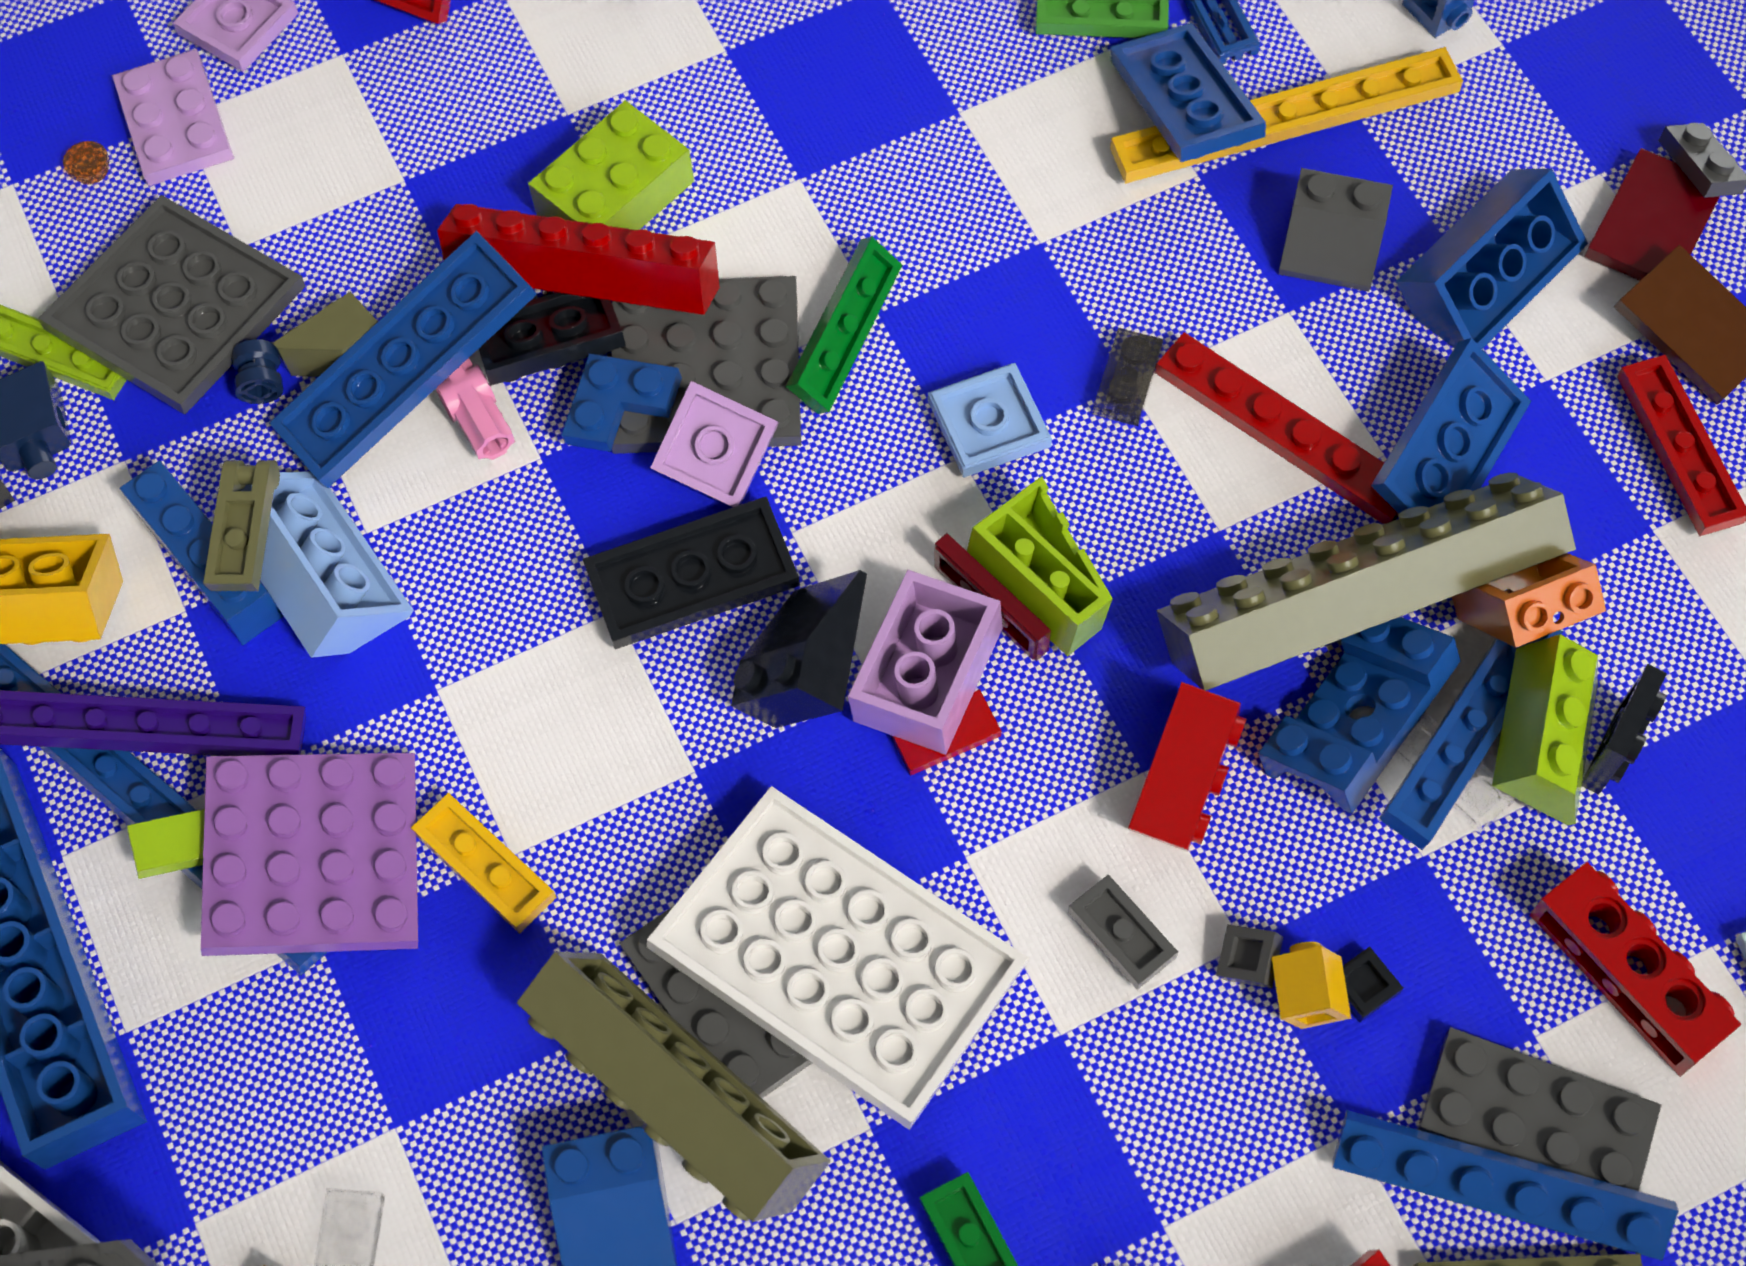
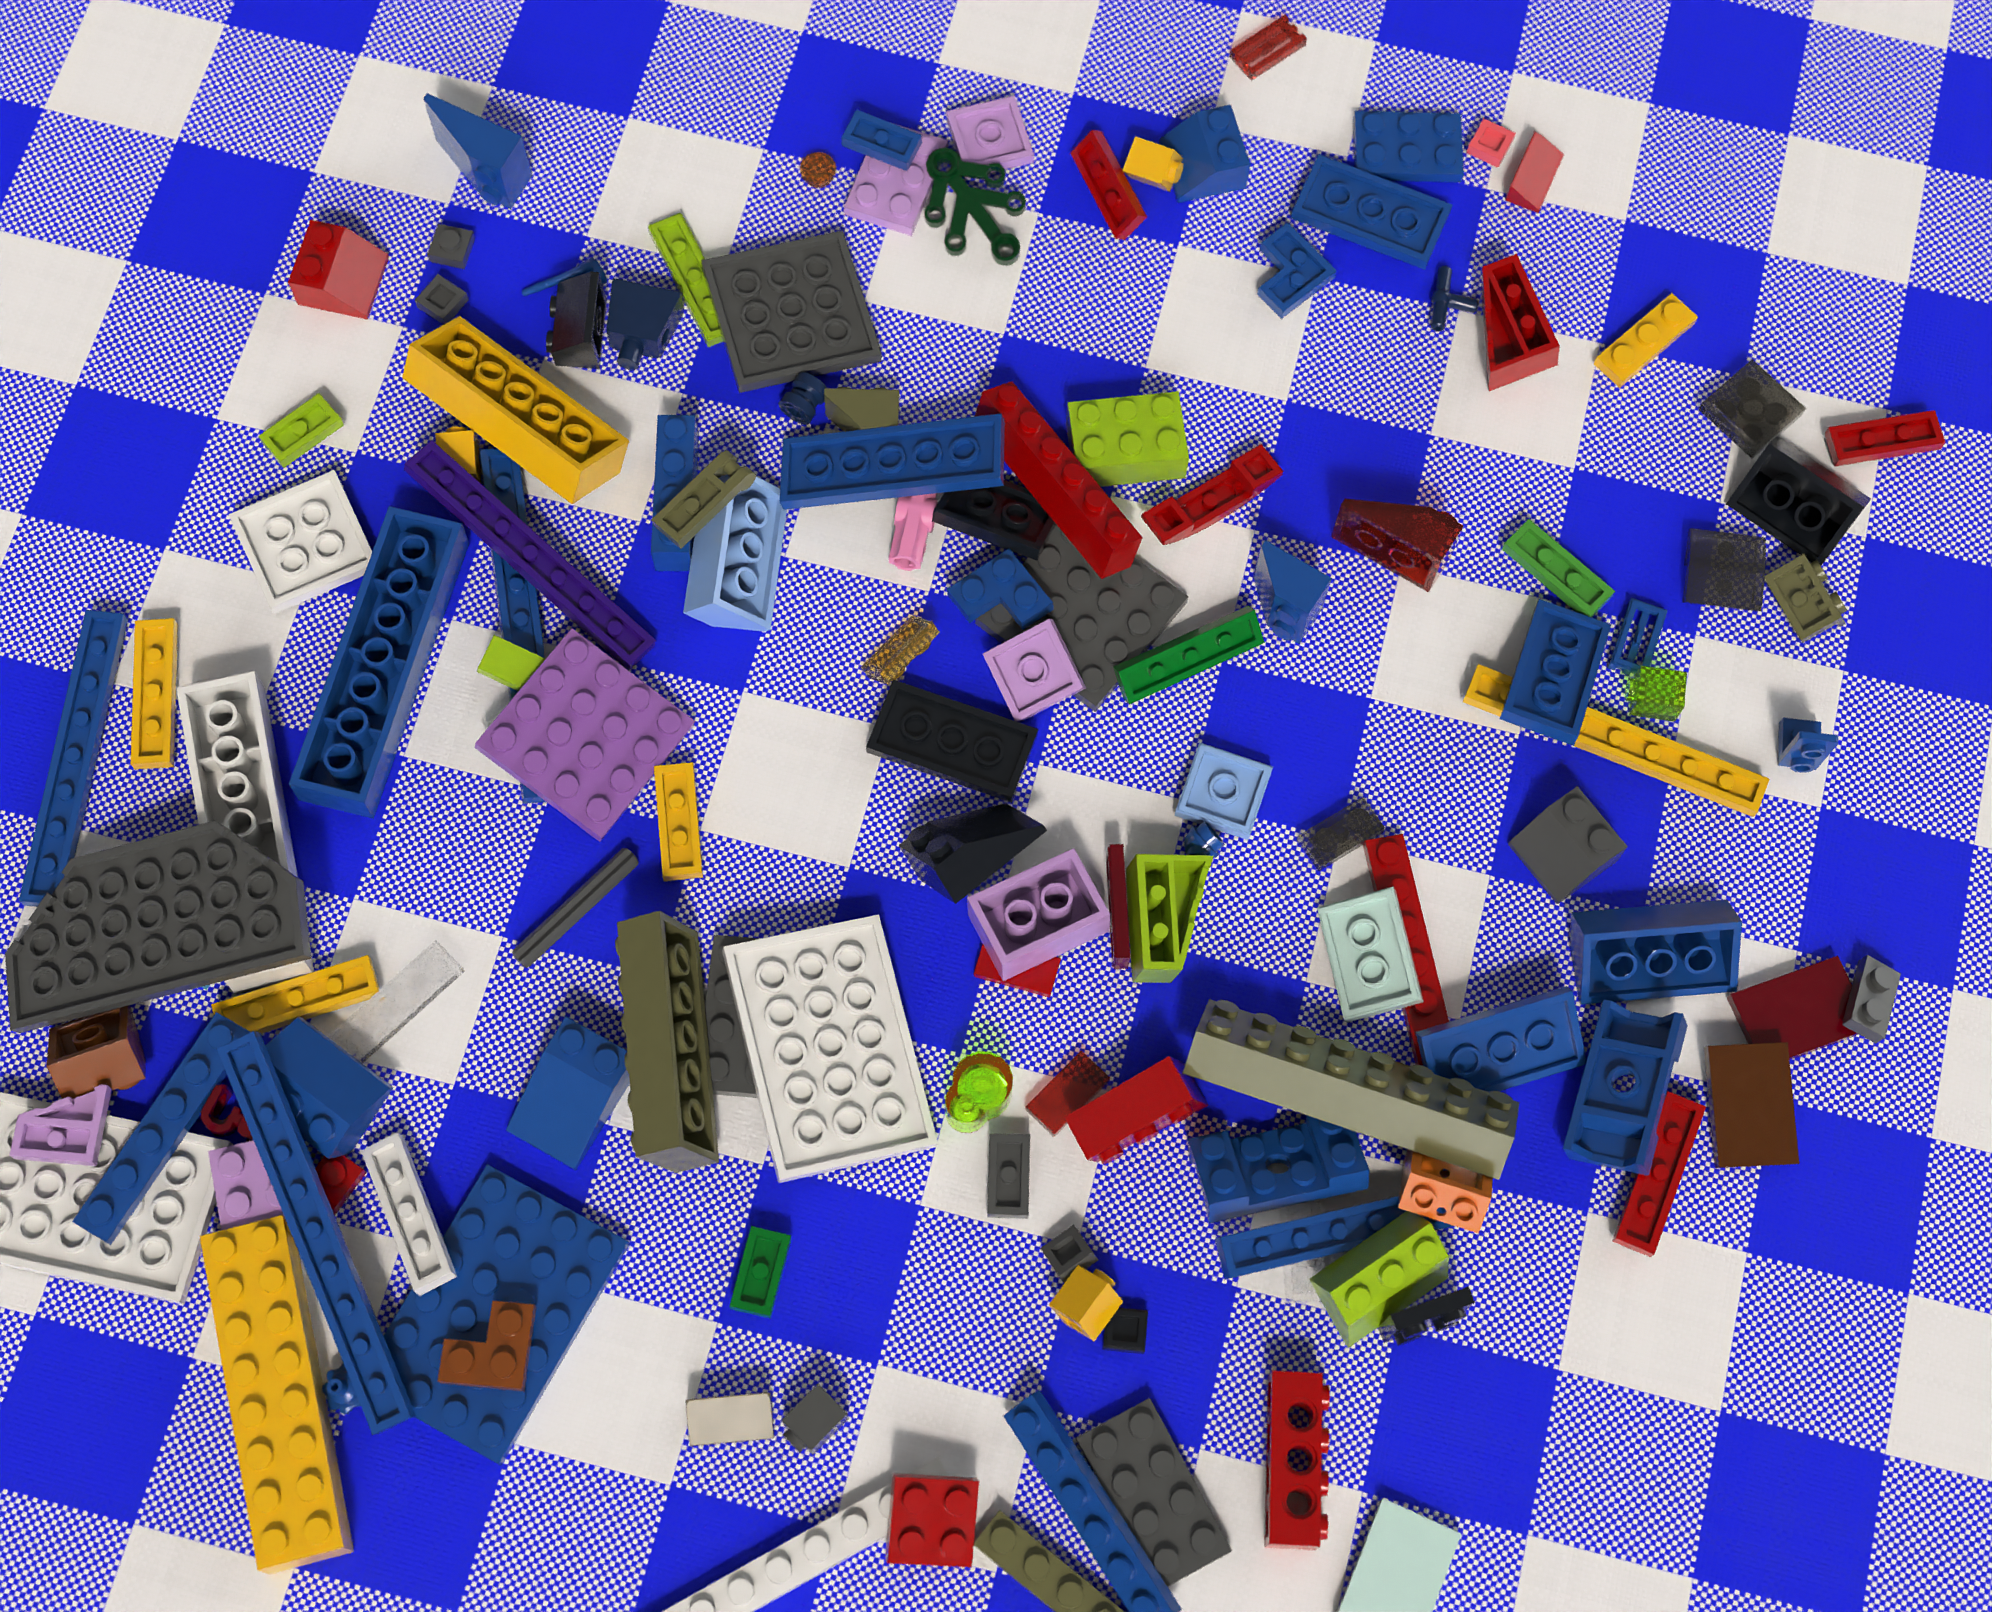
camera: 35 degrees right, 5 degrees up
(131, 85) = (881, 140): none -> blue plate
(271, 82) = (970, 201): none -> dark green plant
(448, 1035) = (575, 907): none -> dark grey axle
(564, 528) = (900, 649): none -> clear yellow plate
(740, 174) = (1214, 499): none -> red slope
(886, 197) = (1289, 592): none -> blue slope
(944, 80) = (1400, 537): none -> clear red slope
(1012, 476) = (1203, 841): none -> blue plate
(1020, 874) = (978, 1091): none -> clear neon green piece
(1103, 809) = (1067, 1092): none -> clear red tile
(1258, 457) = (1370, 954): none -> light aqua tile
(1285, 49) = (1656, 693): none -> clear neon green brick
(1617, 426) = (1621, 1126): none -> blue piece

